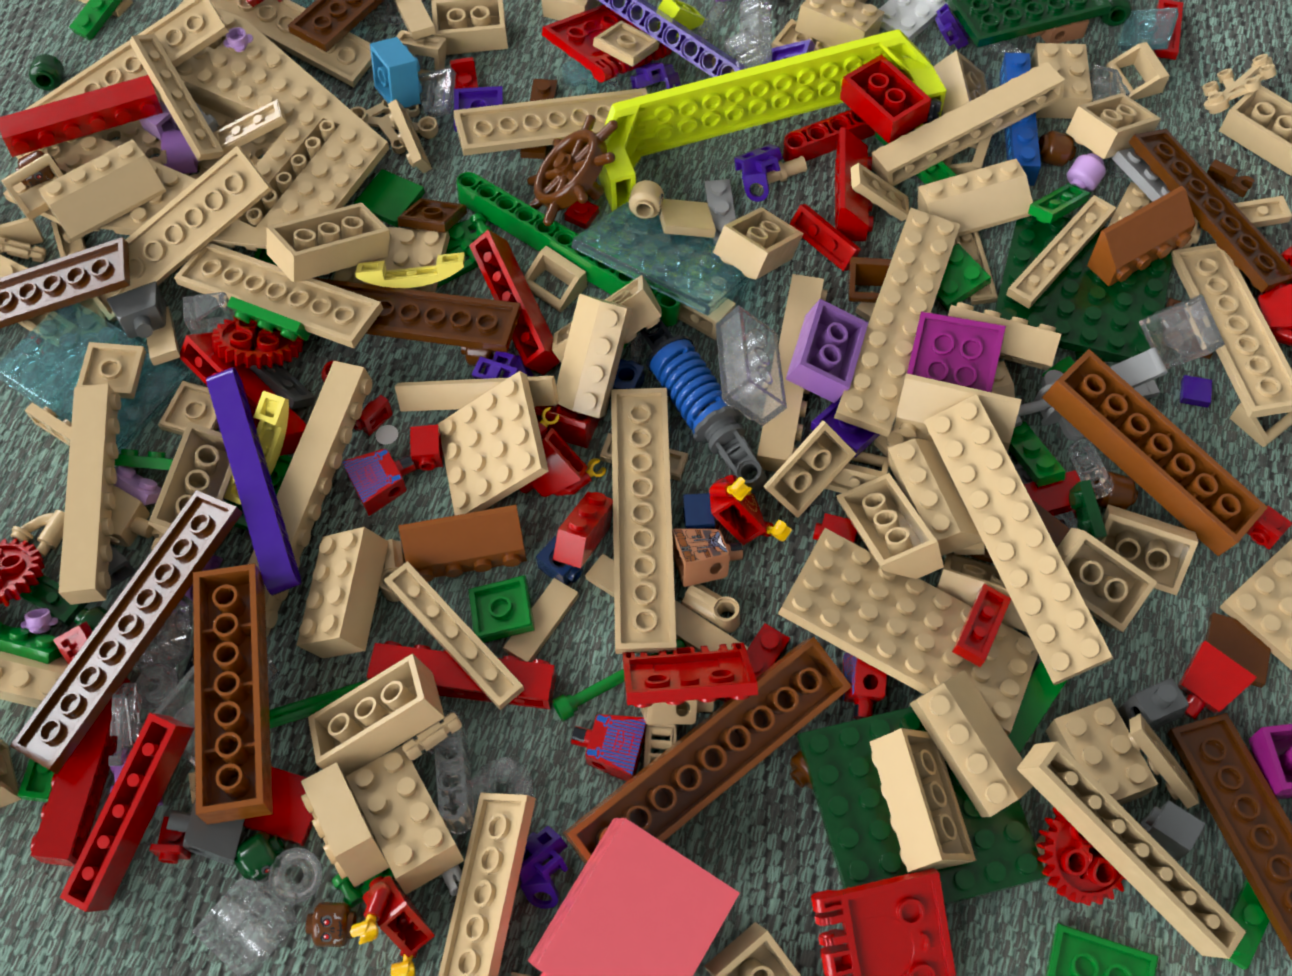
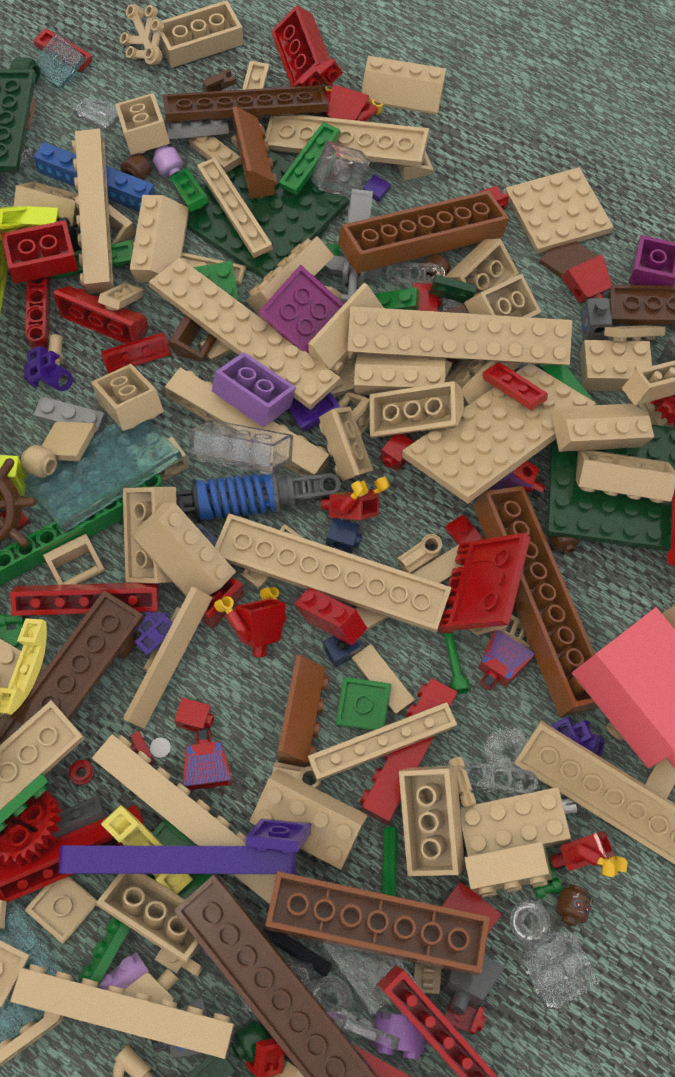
camera: 75 degrees left, 5 degrees up
(257, 855) = (503, 947): dark green head -> none
(300, 556) = (278, 835): none -> dark purple plate
(492, 446) = (226, 659): tan plate -> none
(702, 555) = (380, 542): nougat torso -> none
(1072, 65) = (62, 123): tan brick -> none
(1147, 65) = (93, 79): tan tile -> none
(1163, 295) = (306, 161): none -> green plate

